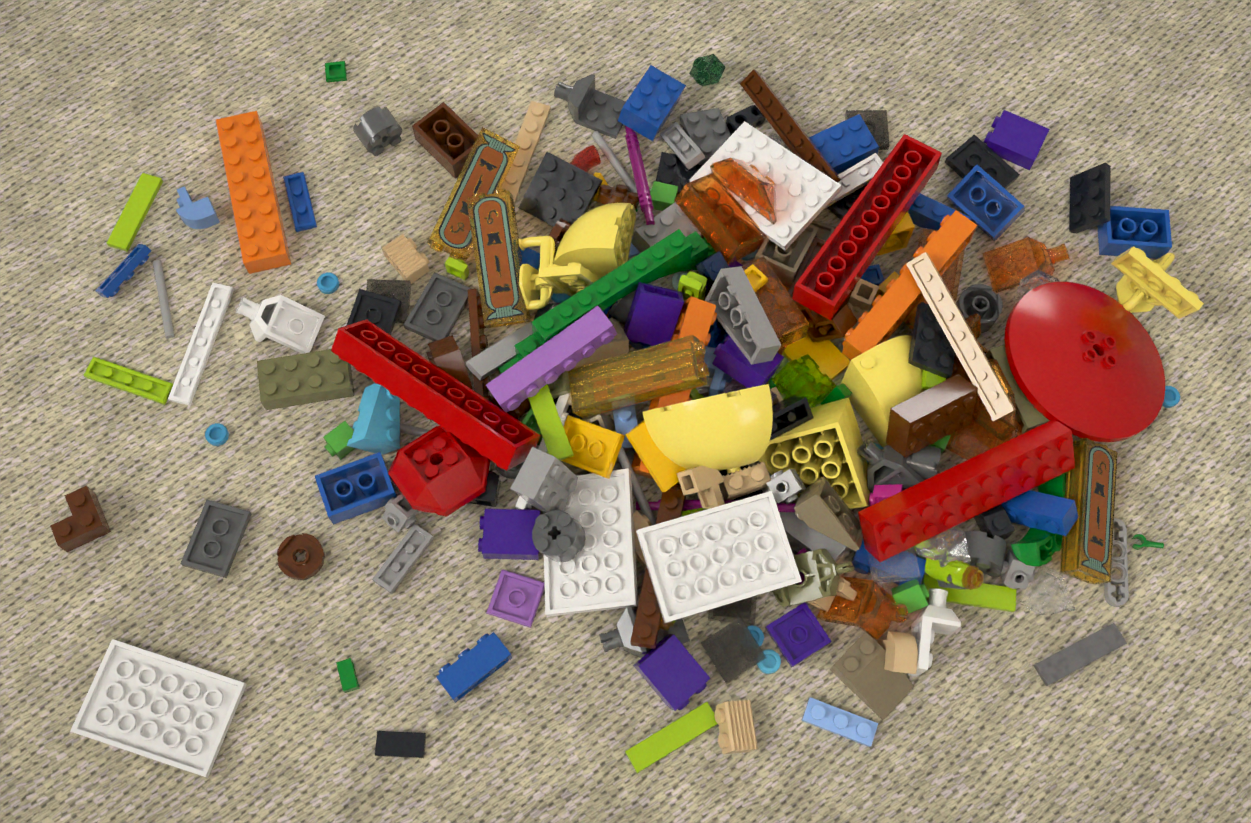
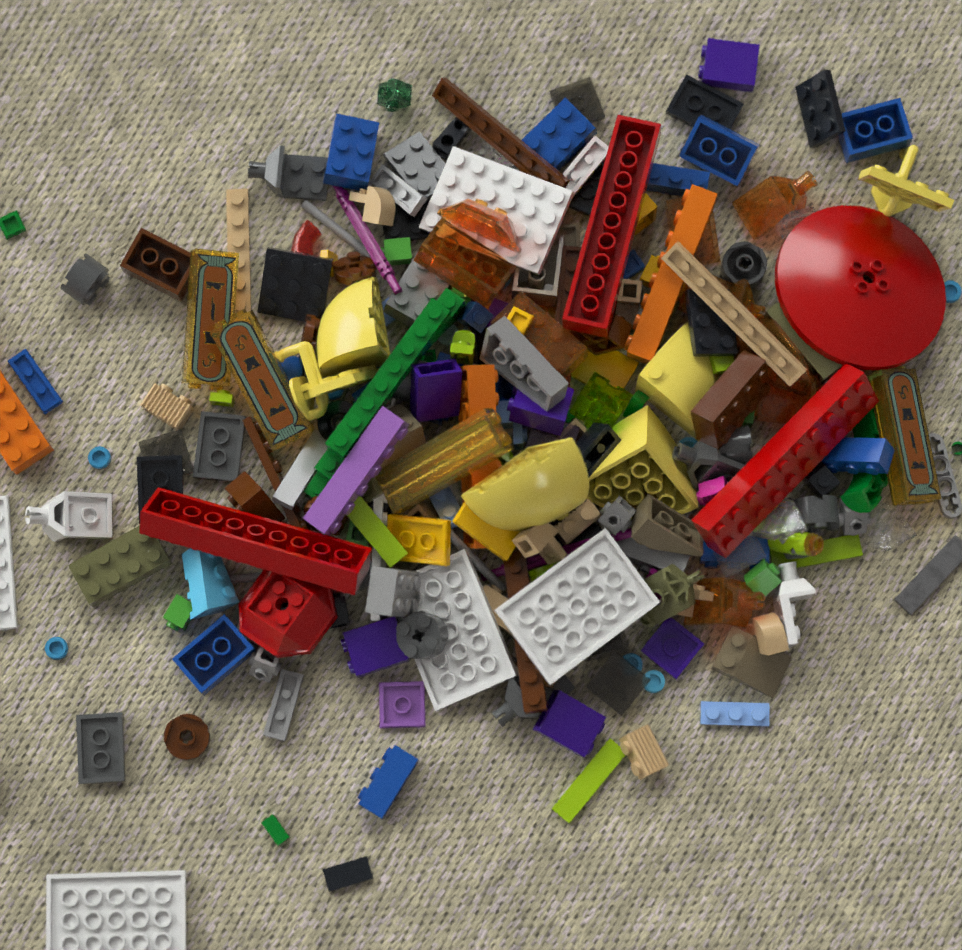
camera: 15 degrees left, 10 degrees up
(658, 152) = (378, 206): none -> tan brick

